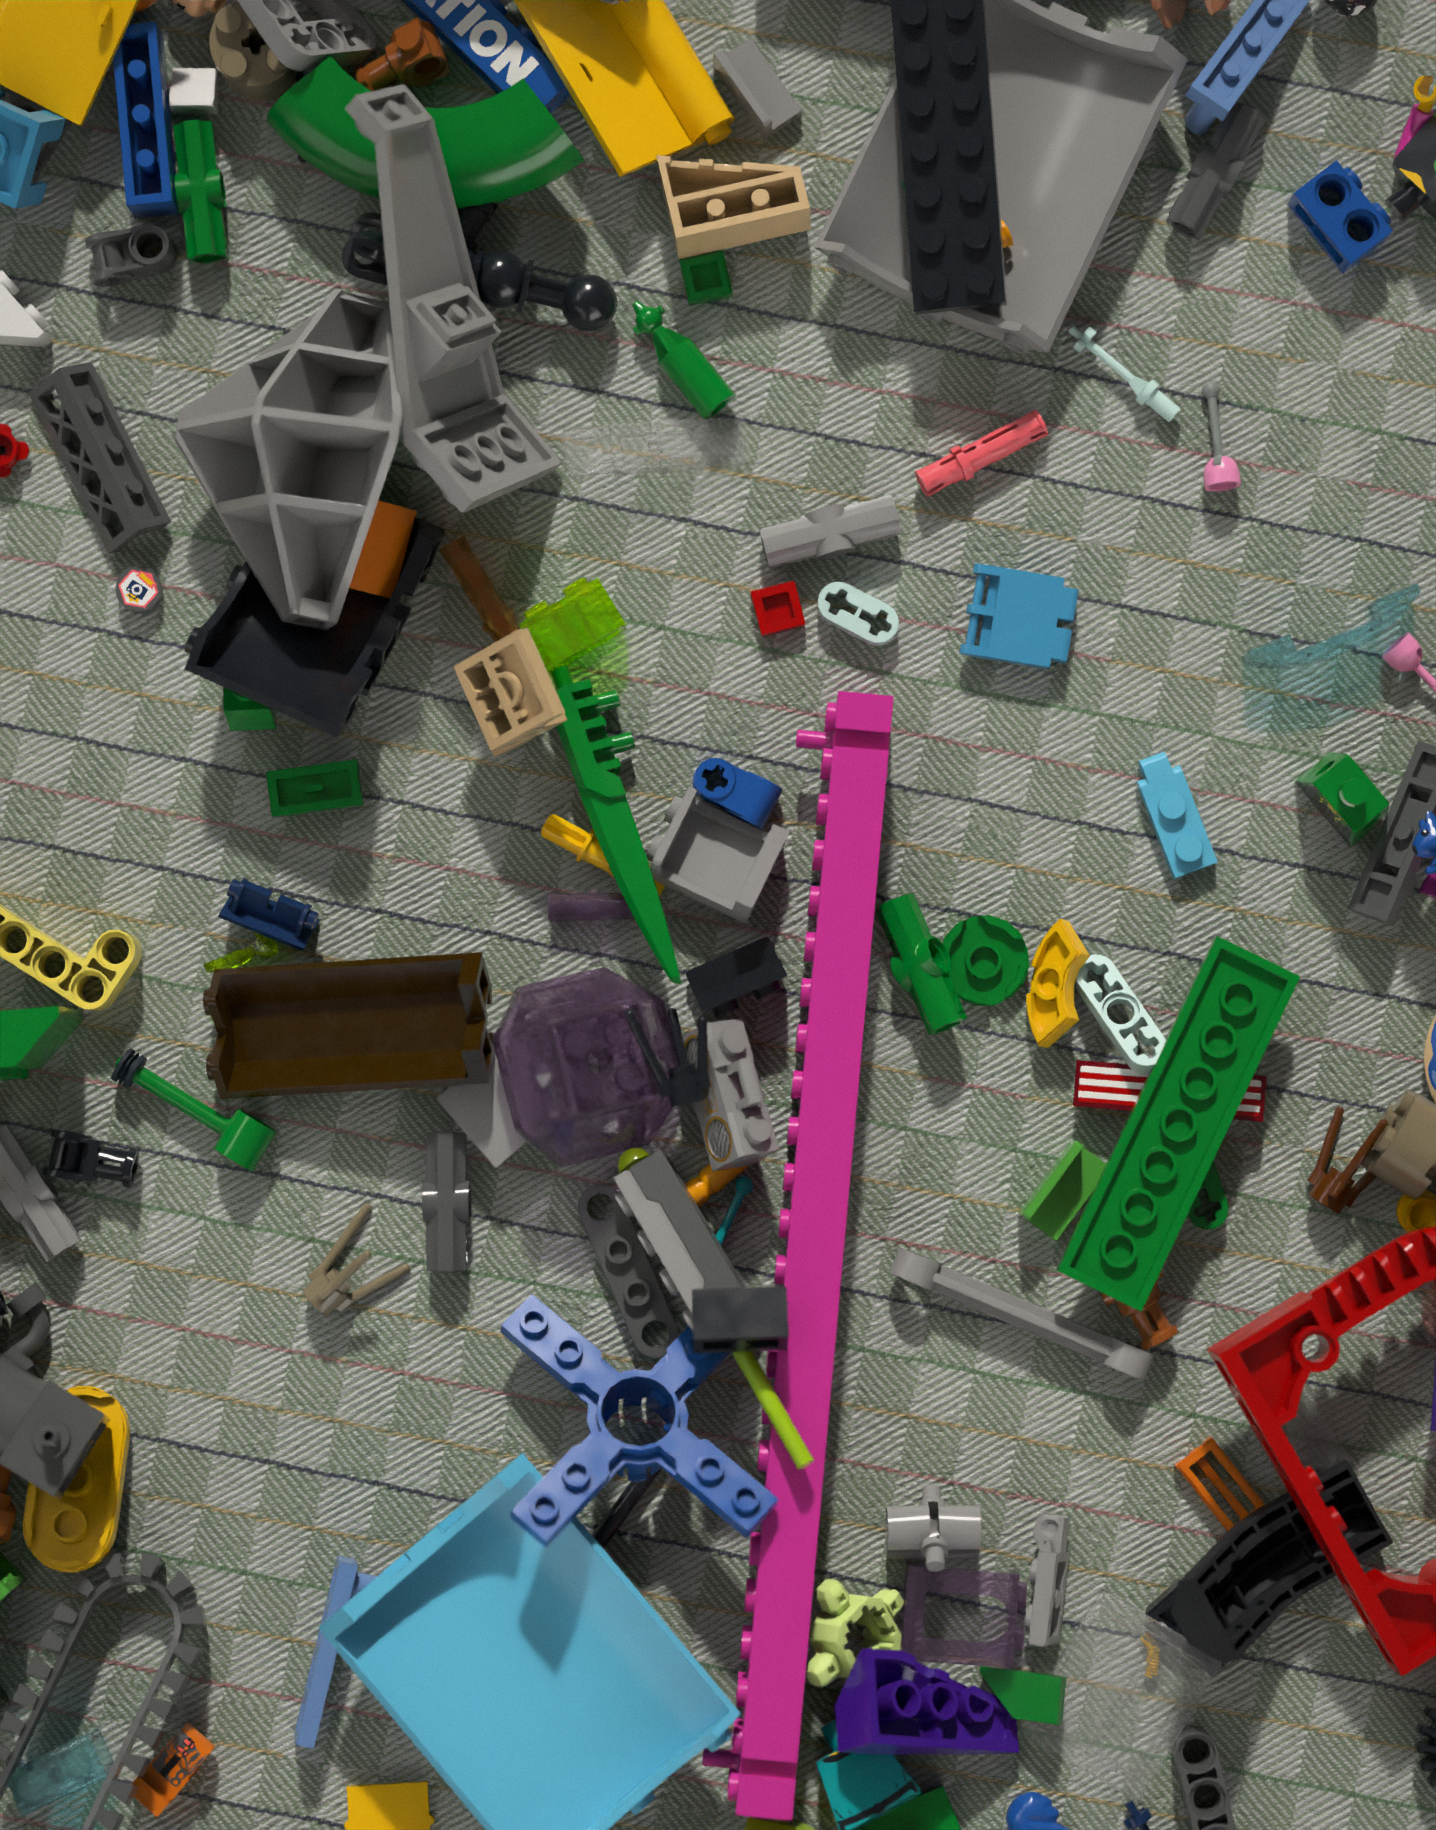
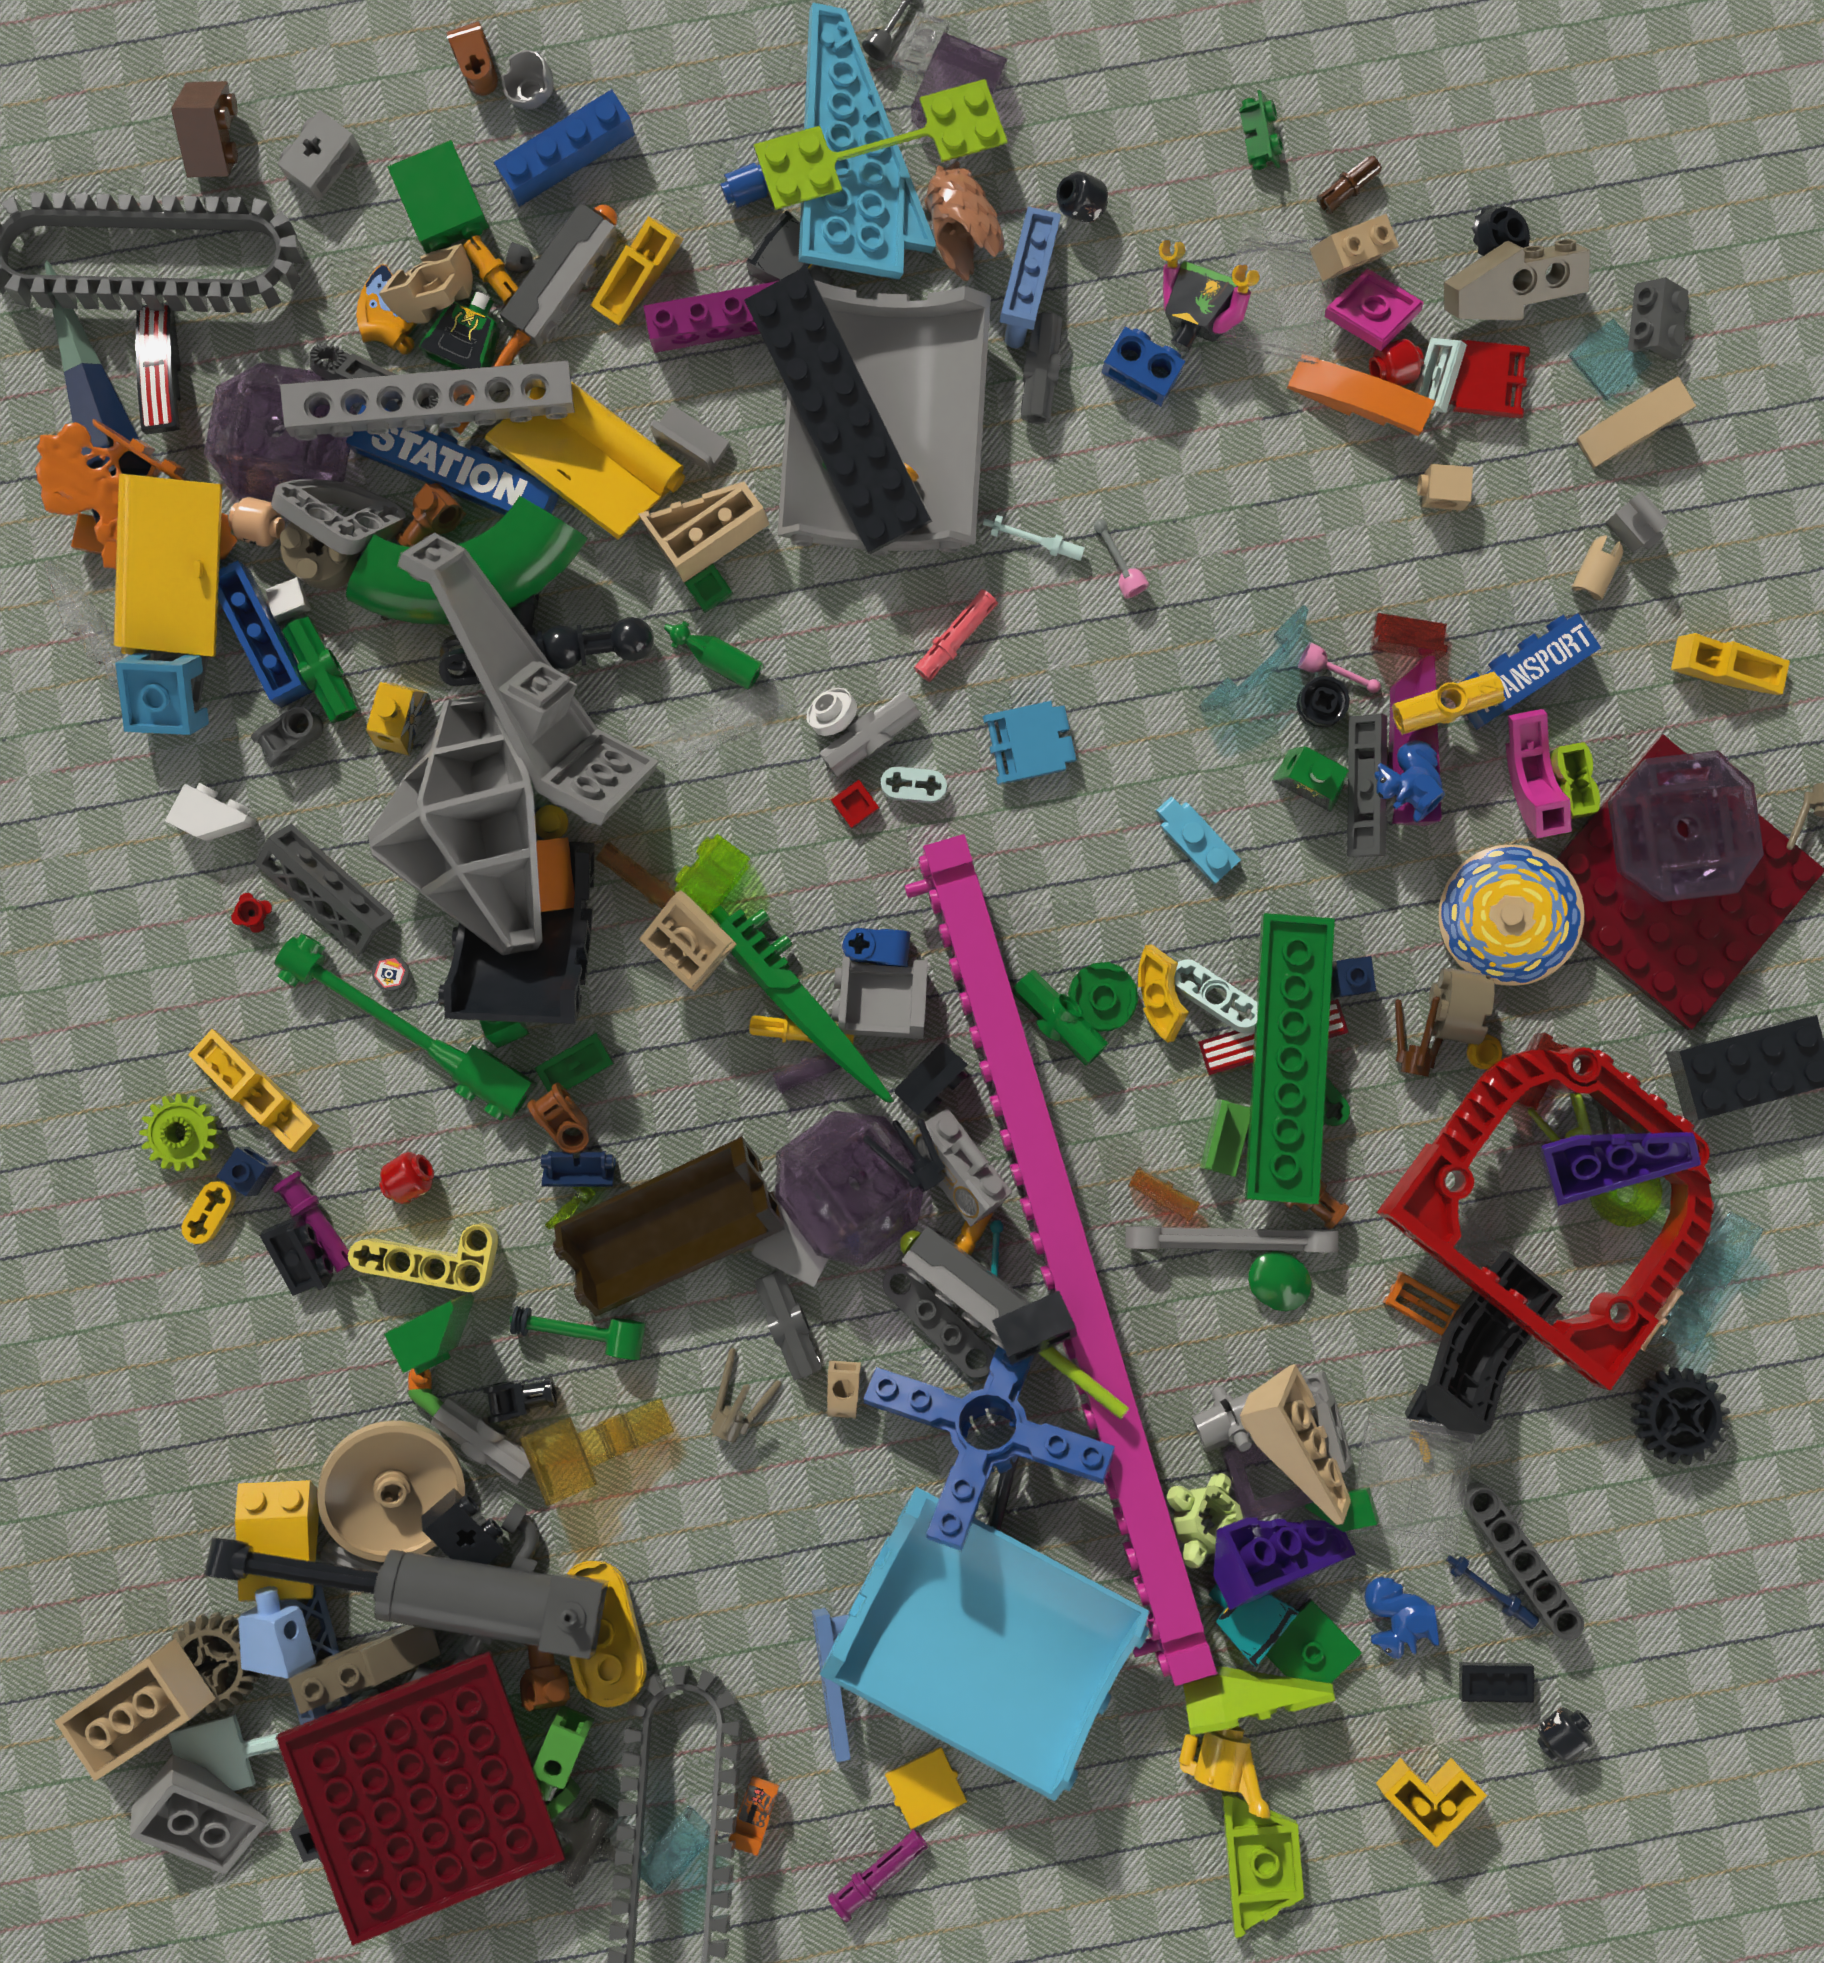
camera: 25 degrees left, 0 degrees up
(61, 842) = (406, 1177): none -> red head
(116, 1252) = (564, 1458): none -> clear yellow plate
(192, 748) = (475, 1072): none -> green bar
(268, 284) = (395, 716): none -> yellow torso
(271, 837) = (557, 1113): none -> dark orange piece
(404, 485) = (551, 822): none -> yellow plate
(481, 1305) = (843, 1389): none -> tan leg
(794, 486) = (832, 711): none -> white plate
(961, 1227) = (1164, 1194): none -> clear orange pin
(993, 1568) = (1286, 1432): none -> tan wedge
(1059, 1388) = (1279, 1281): none -> green hat
(1294, 1057) = (1353, 977): none -> dark blue brick
(1394, 710) = (1322, 702): none -> black wheel

